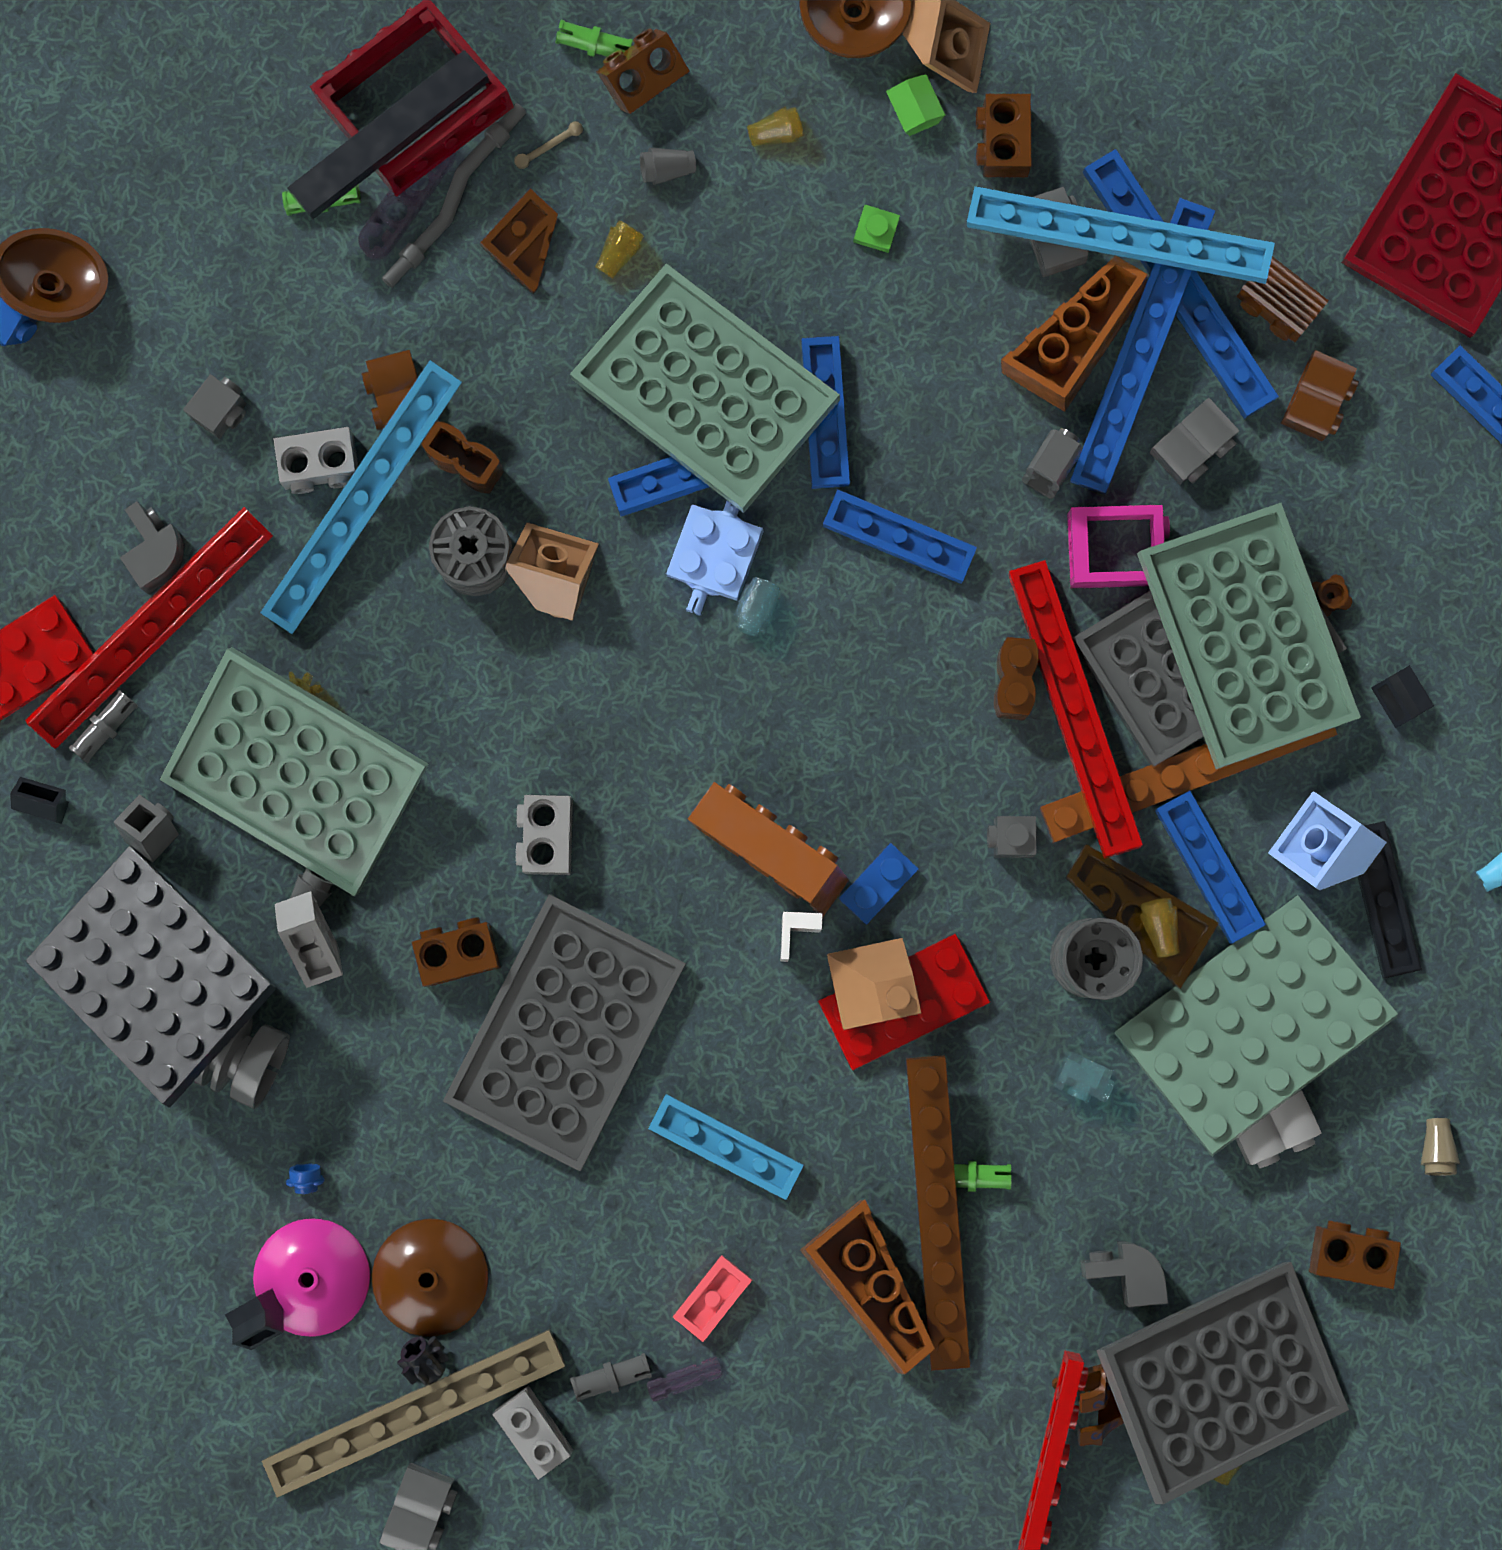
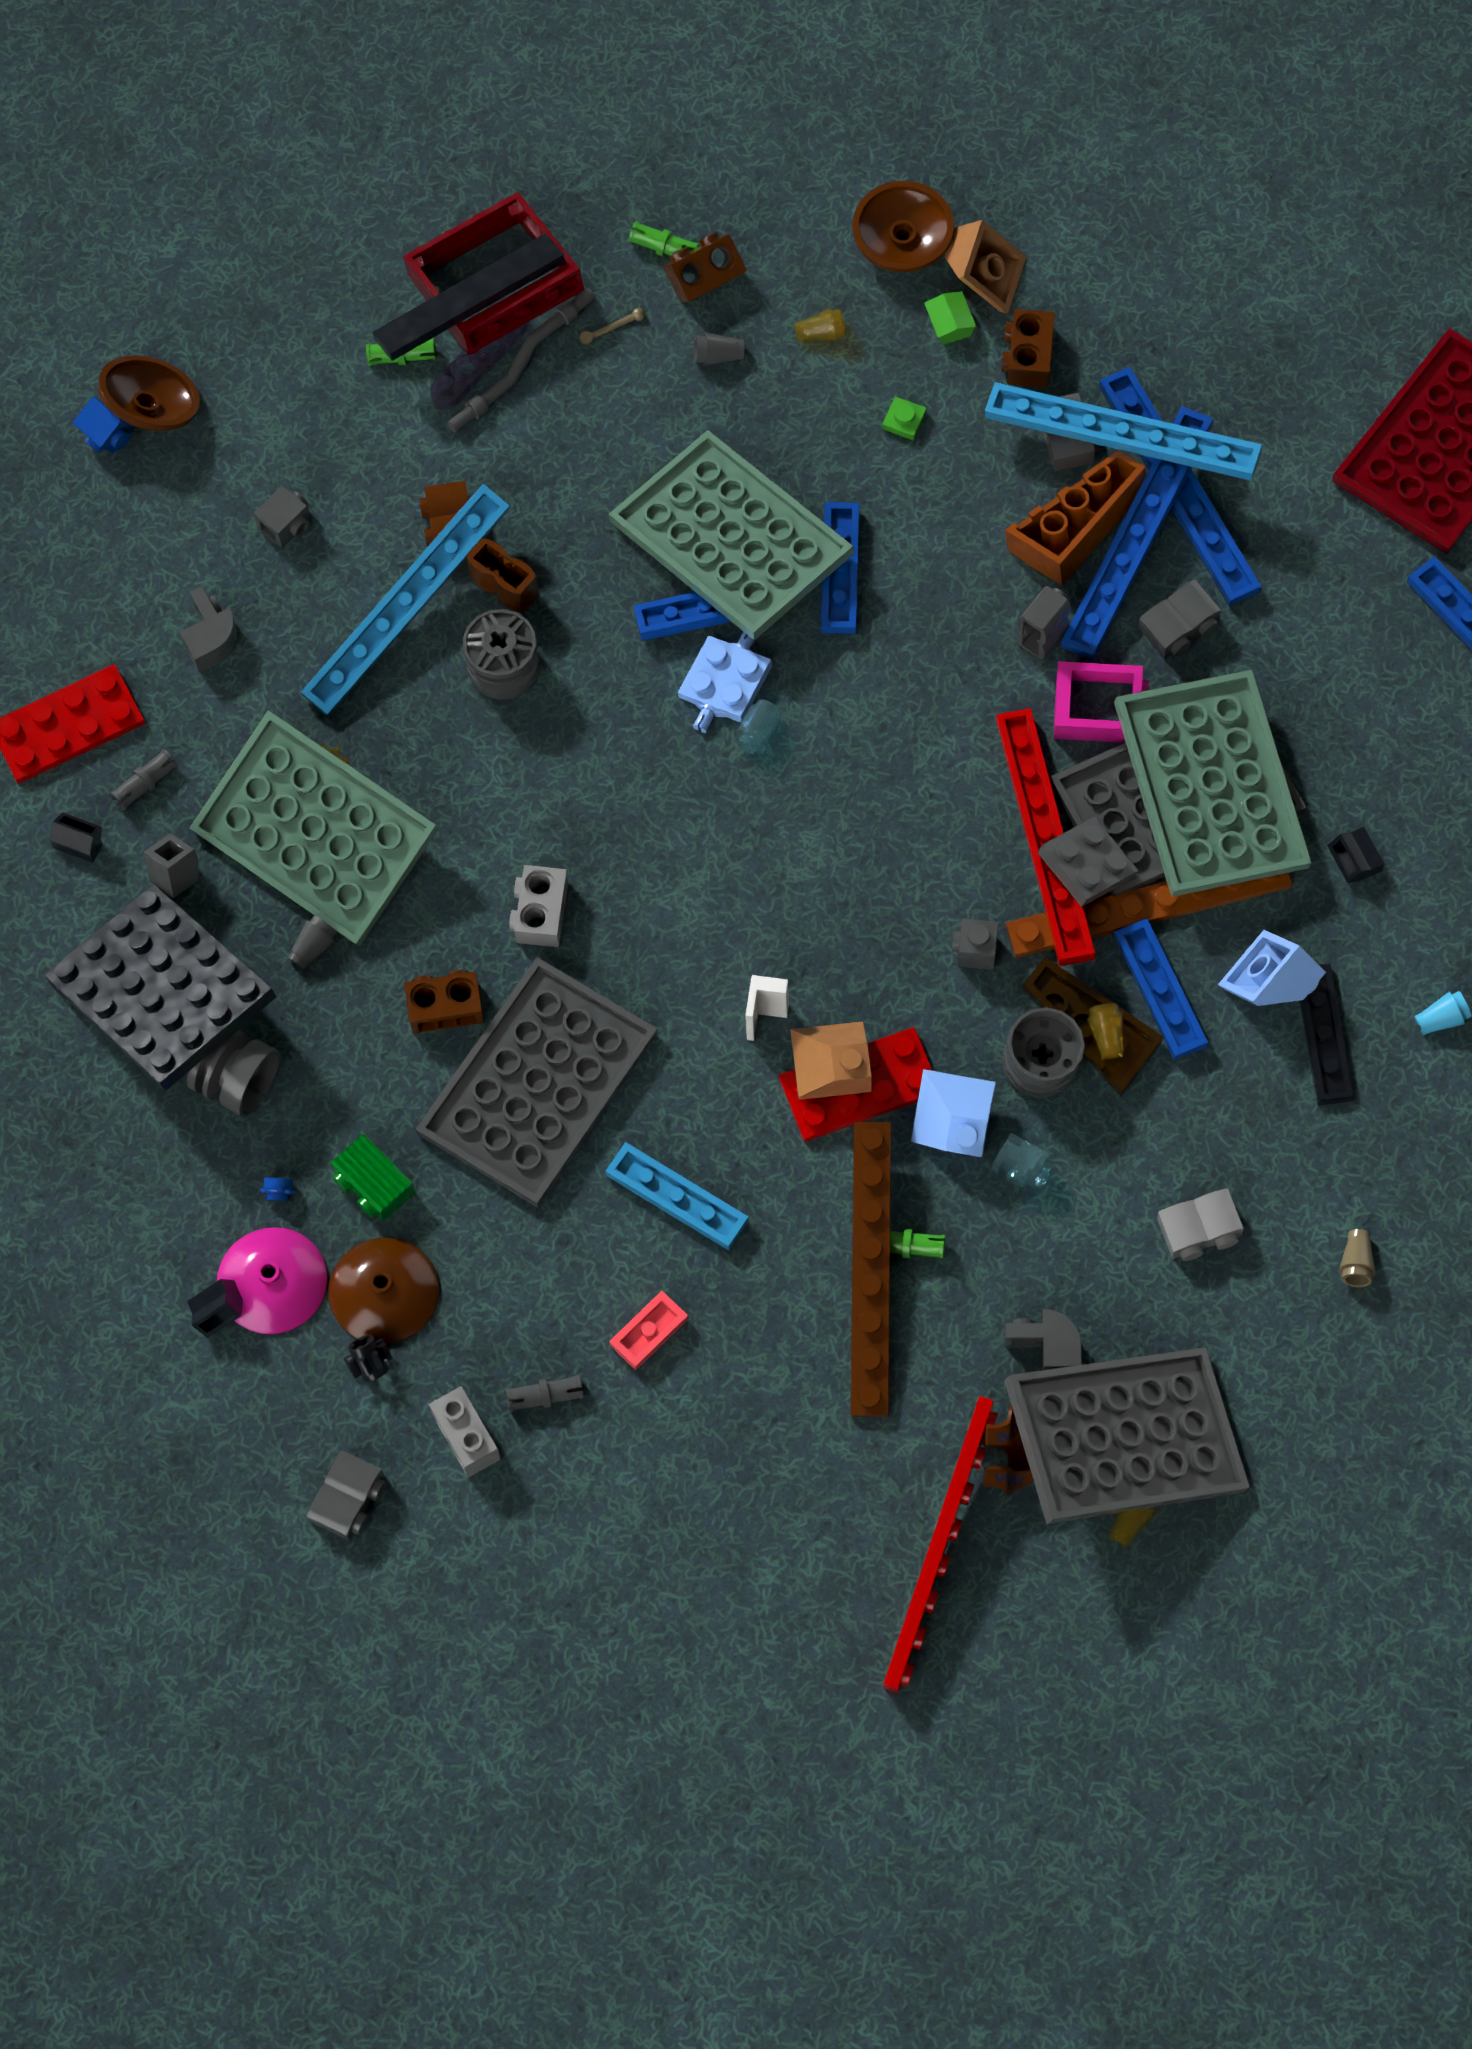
camera: 10 degrees right, 15 degrees down
(148, 628) = (196, 698): red plate -> none
(308, 939) = (309, 971): light grey brick -> none
(316, 448) = (369, 560): light grey brick -> none
(403, 1159) = (372, 1178): none -> green brick
(413, 1413) = (352, 1408): dark tan plate -> none
(523, 239) = (579, 400): reddish brown wing -> none
(552, 569) = (573, 680): medium nougat slope -> none
(619, 248) = (666, 414): clear yellow cone -> none
(684, 1379) = (614, 1403): clear purple axle -> none
(770, 847) = (748, 931): dark orange wedge -> none
(870, 1286) = (793, 1320): dark orange wedge -> none
(878, 883) = (846, 978): blue plate -> none
(899, 536) = (897, 678): blue plate -> none
(1008, 1033) = (953, 1112): none -> light blue slope
(1015, 668) = (992, 806): reddish brown brick -> none
(1124, 738) = (1087, 861): none -> dark grey plate
(1255, 1025) = (1189, 1129): sand green plate -> none
(1283, 301) = (1272, 505): reddish brown brick -> none
(1320, 395) = (1300, 589): reddish brown brick -> none
(1336, 586) = (1301, 755): reddish brown plate -> none
(1353, 1264) = (1264, 1356): reddish brown brick -> none

